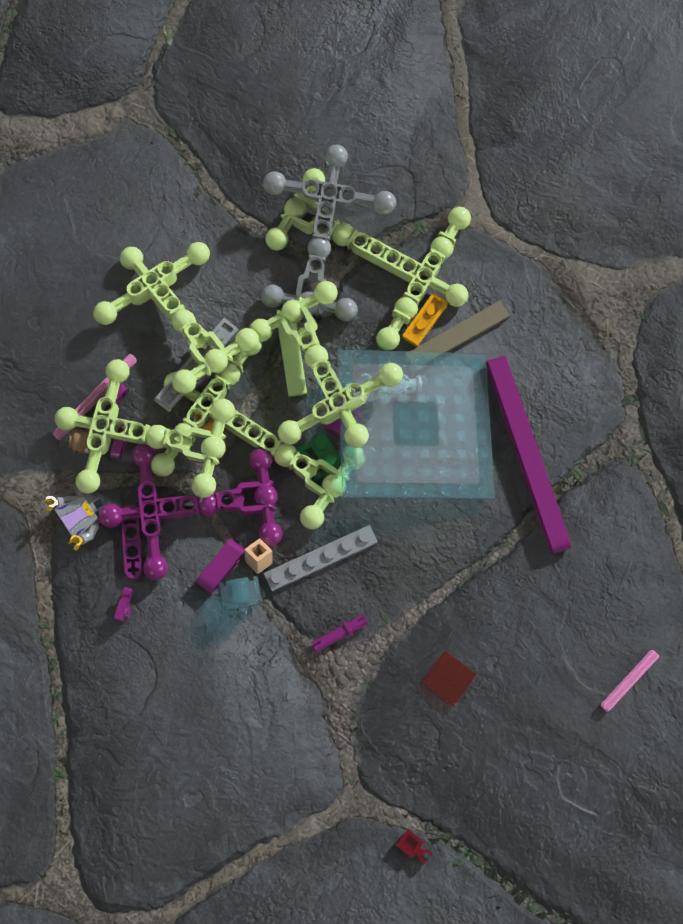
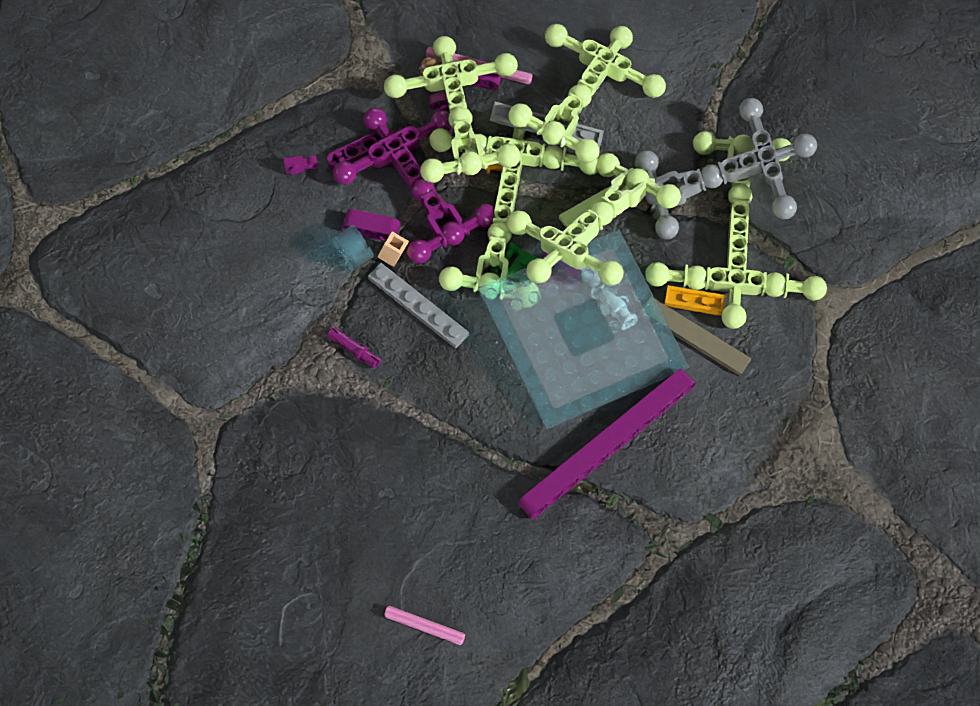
camera: 70 degrees right, 10 degrees down
(77, 516) = (361, 94): torso -> none
(411, 845) = (183, 486): dark red plate -> none
(449, 678) = (354, 459): clear red tile -> none

